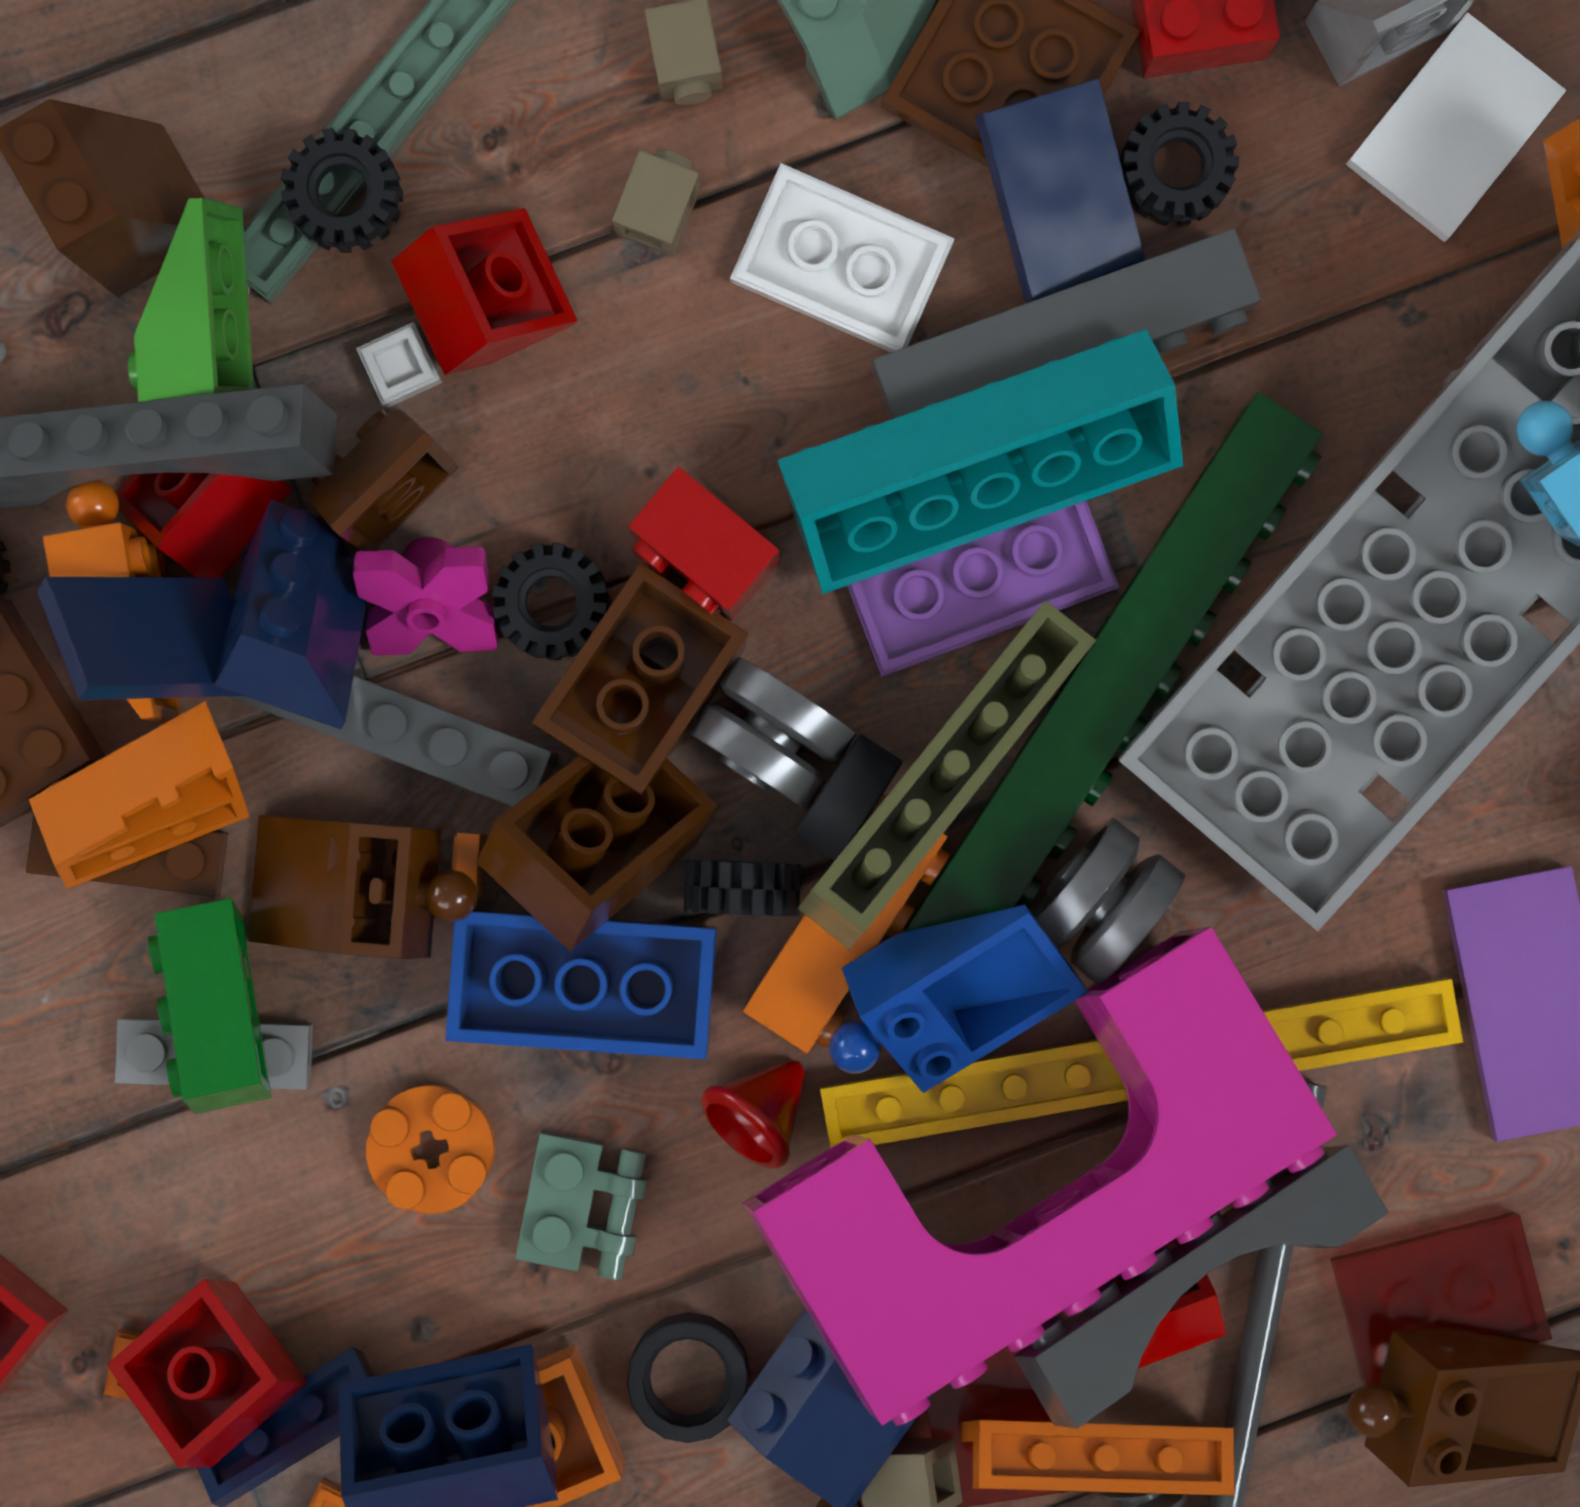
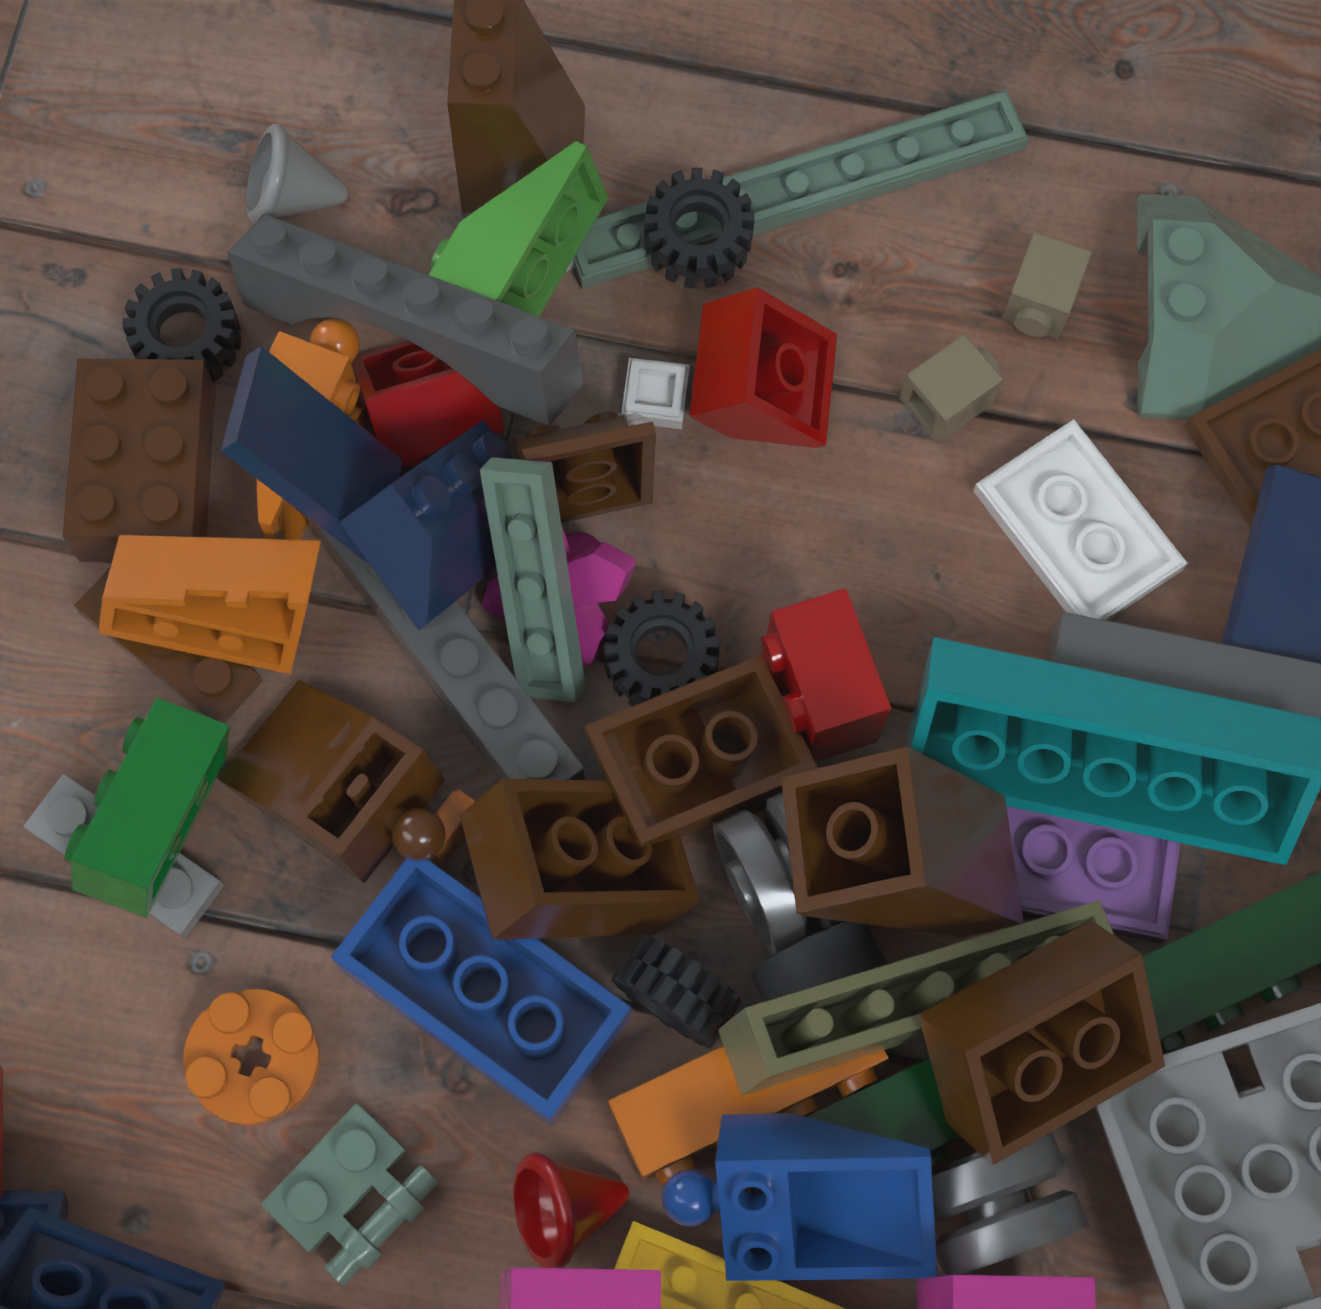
camera: 25 degrees right, 15 degrees down
(407, 620) = (534, 577): none -> sand green plate
(858, 667) = (901, 846): none -> reddish brown slope
(1065, 758) = (1043, 1040): none -> reddish brown brick

